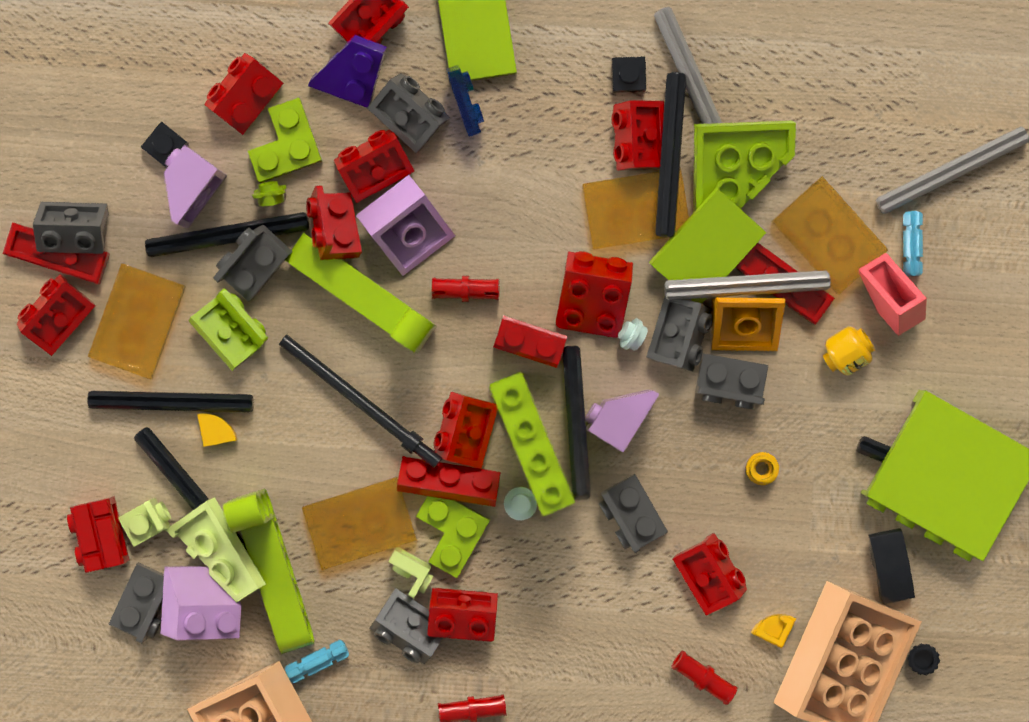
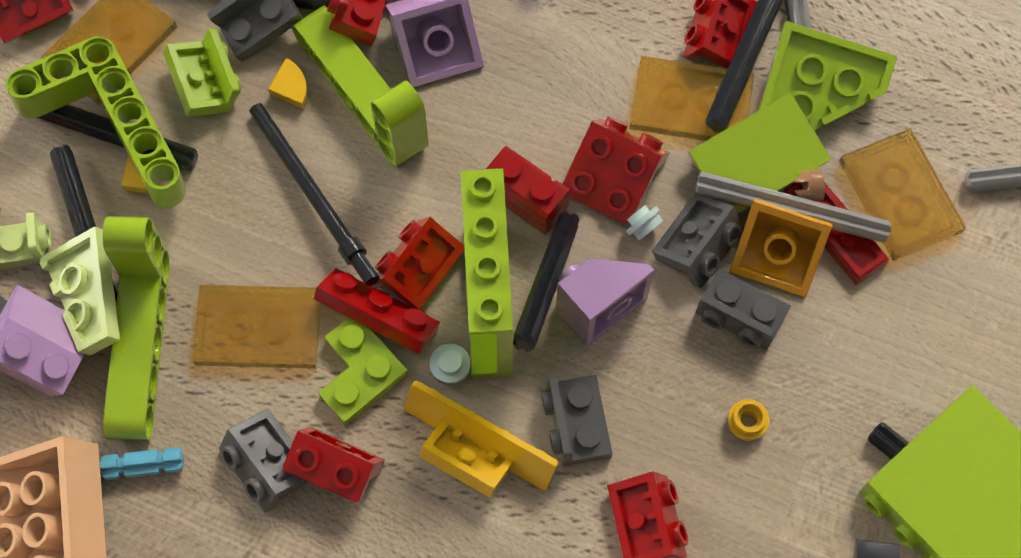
camera: 20 degrees right, 20 degrees down
(177, 391) = (87, 77): none -> lime beam
(303, 309) = (290, 85): none -> yellow tile
(407, 565) = (291, 386): yellowish green bracket -> none
(465, 288) = (475, 117): red pin -> none
(560, 566) = (473, 446): none -> yellow bracket
(756, 261) = (812, 184): none -> medium nougat hinge
(848, 350) = (890, 318): yellow head -> none
(893, 294) = (961, 273): coral slope -> none
(913, 243) = (996, 231): medium azure axle -> none

